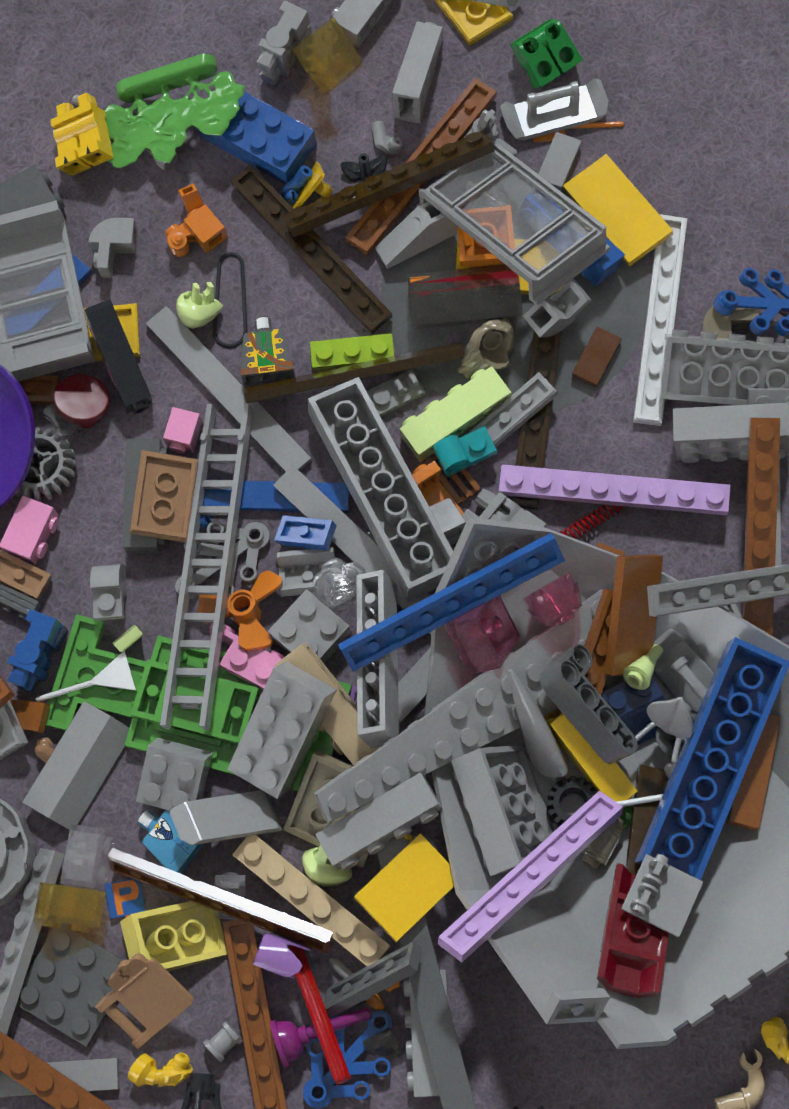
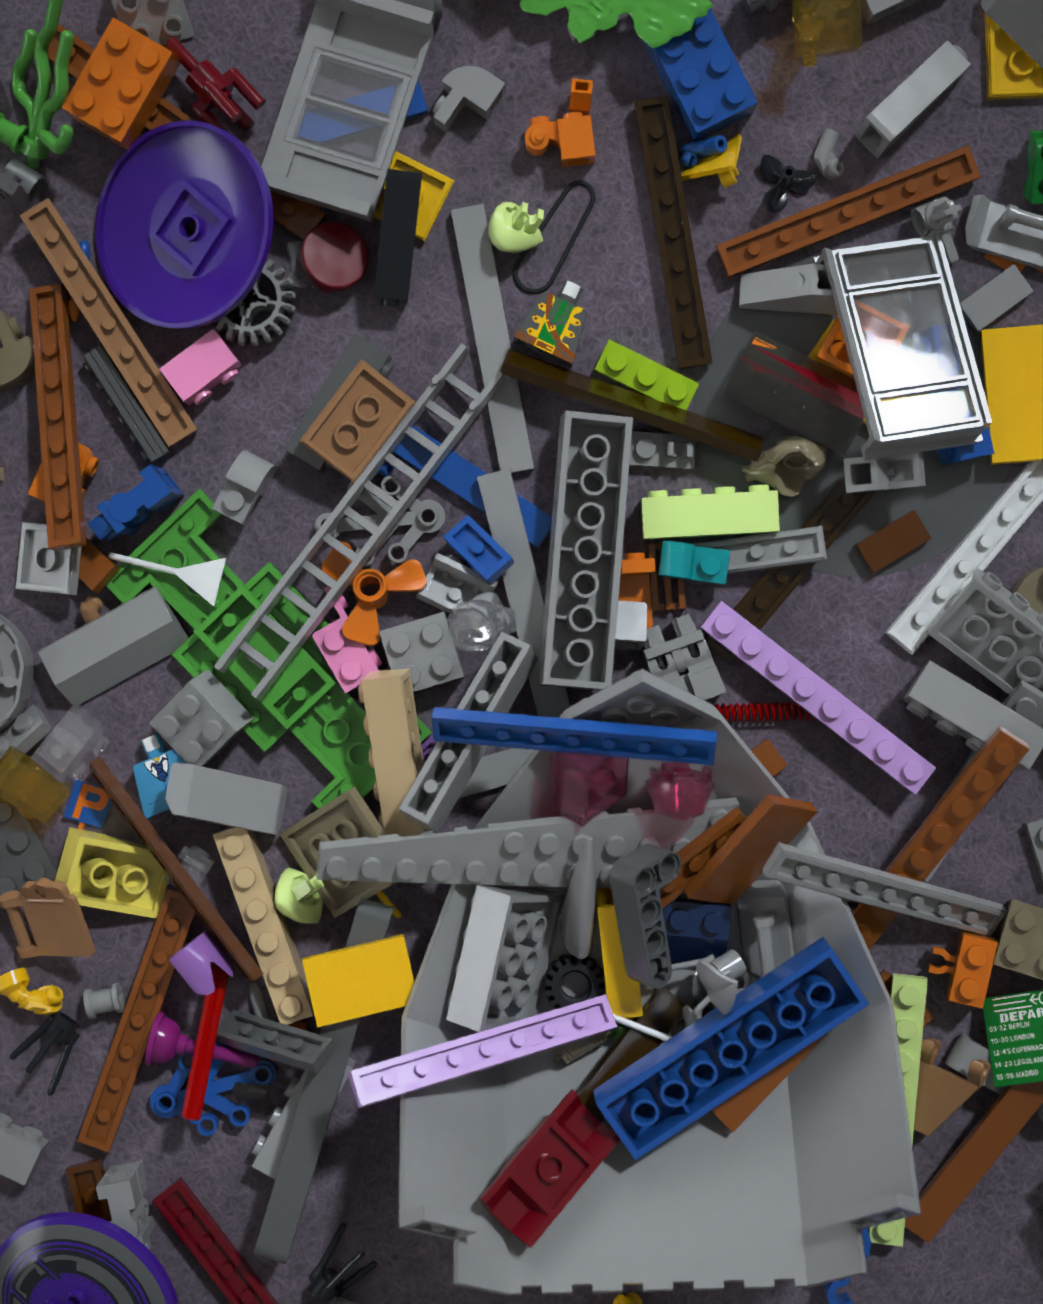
camera: 30 degrees right, 15 degrees up
(127, 638) = (236, 545): yellowish green tile -> none
(182, 430) = (419, 357): bright pink brick -> none
(281, 729) = (331, 747): light grey brick -> none
(379, 821) = (370, 903): light grey brick -> none
(389, 183) = (799, 217): dark brown plate -> none
(640, 672) = (719, 909): yellowish green cone -> none
(662, 895) = (594, 1152): light grey hinge -> none

